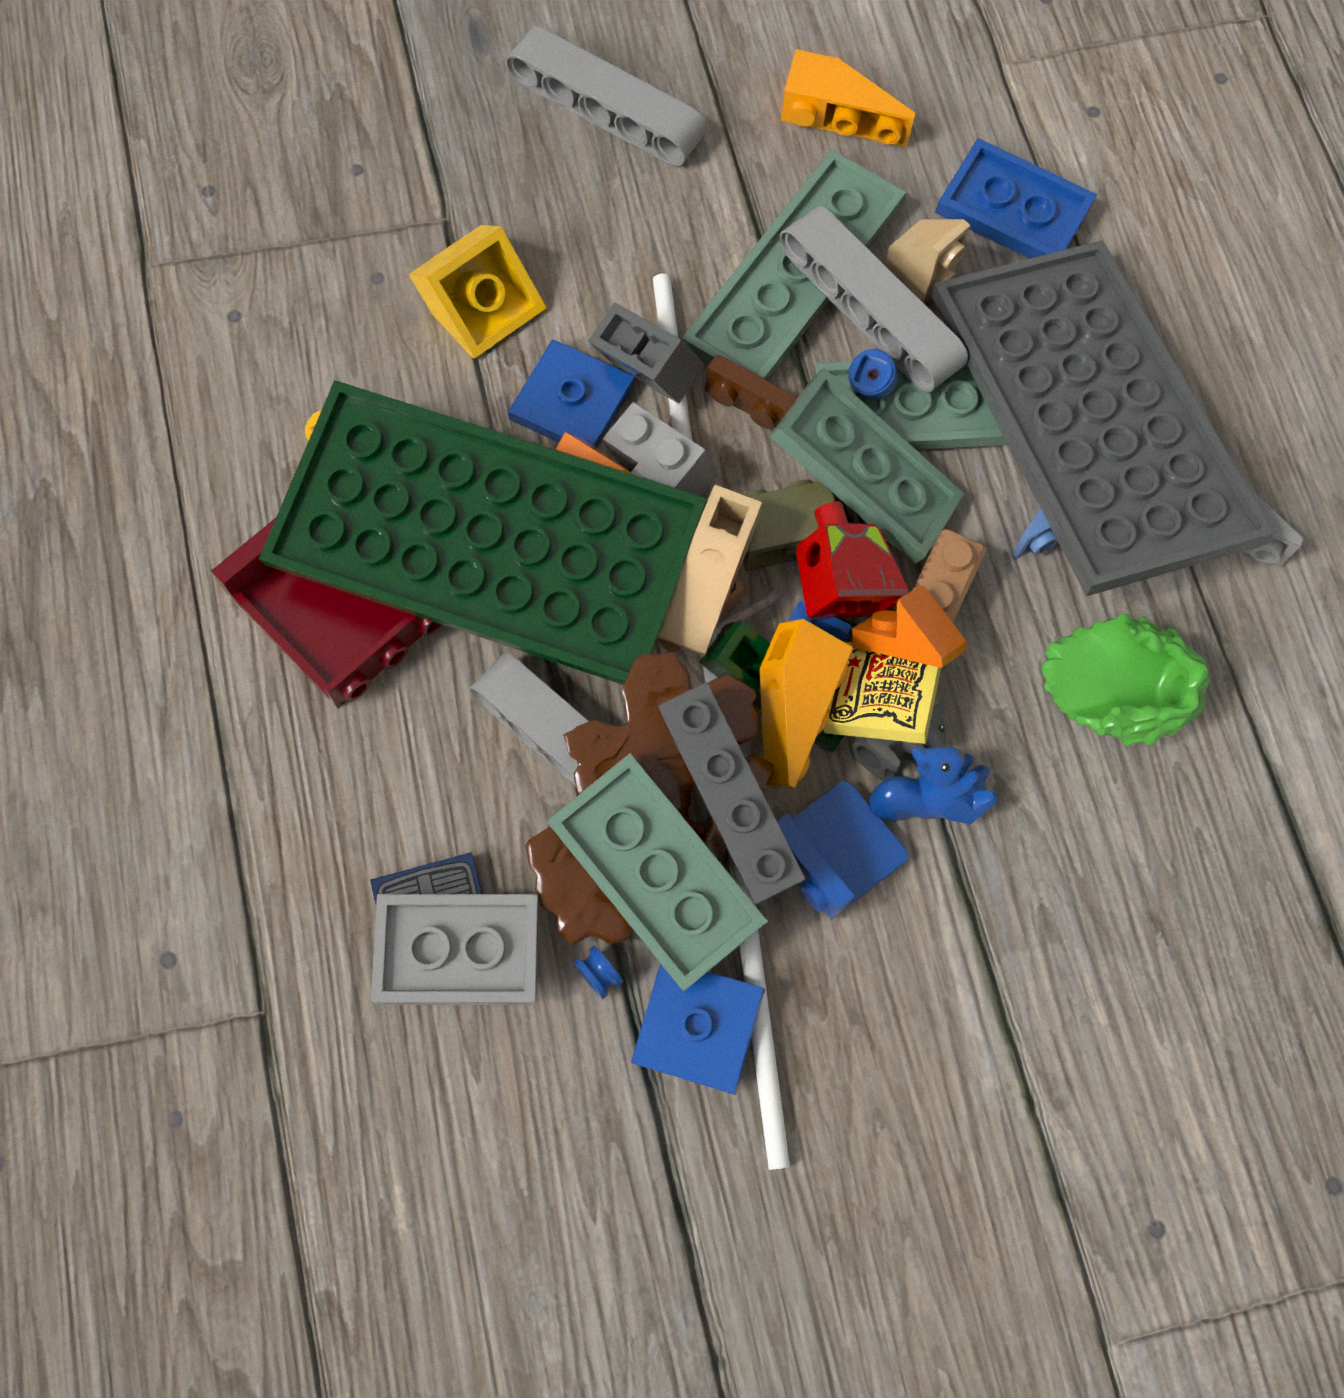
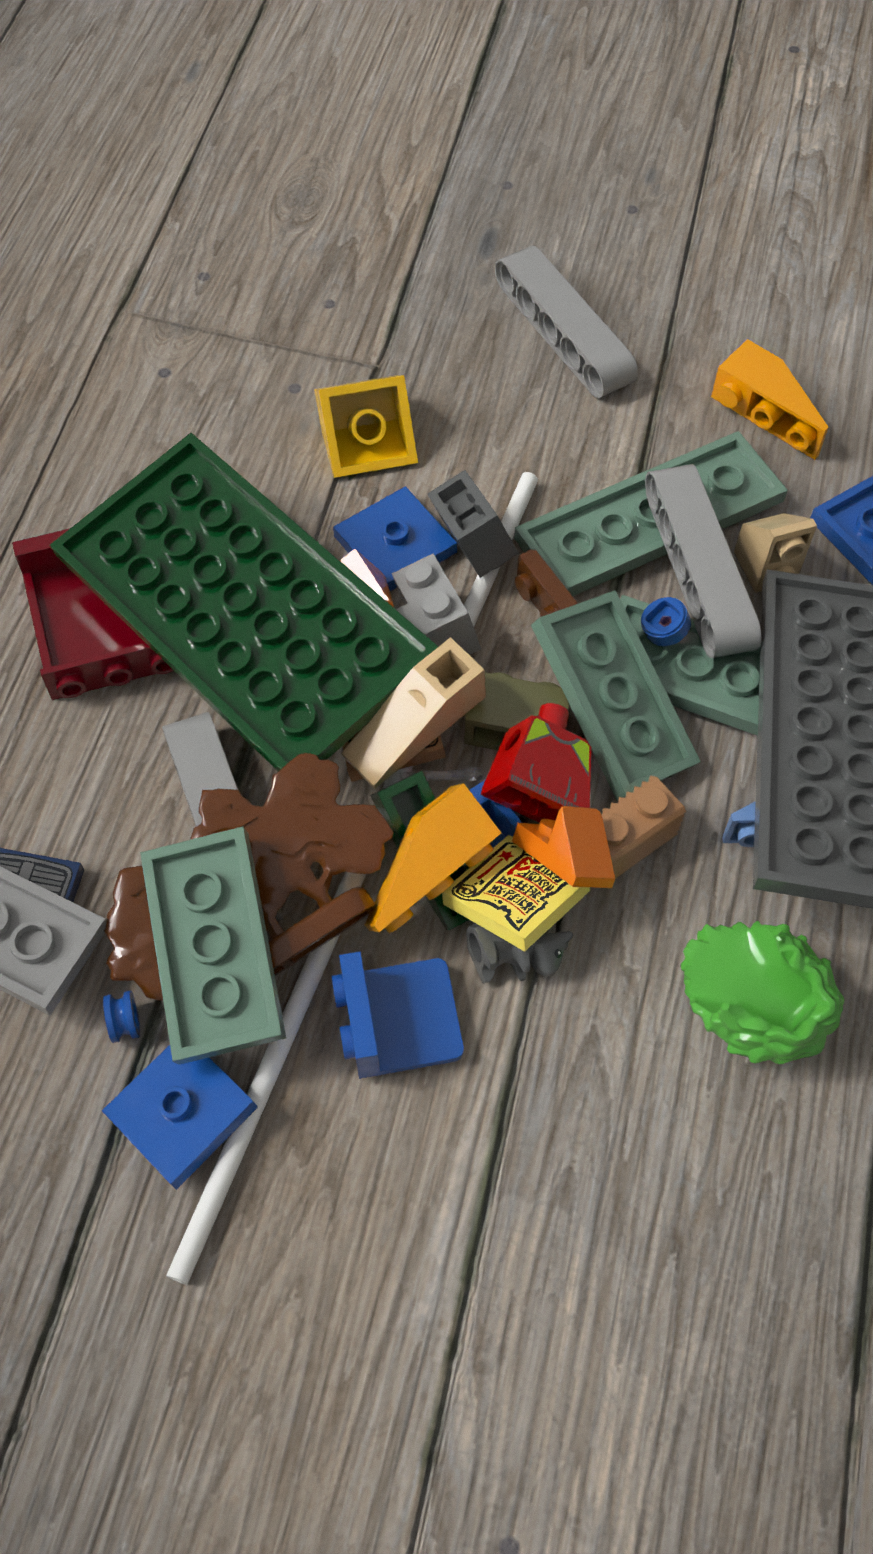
camera: 30 degrees right, 10 degrees down
(731, 793) = (309, 905): dark grey brick -> none
(940, 792) = (522, 1008): blue animal -> none

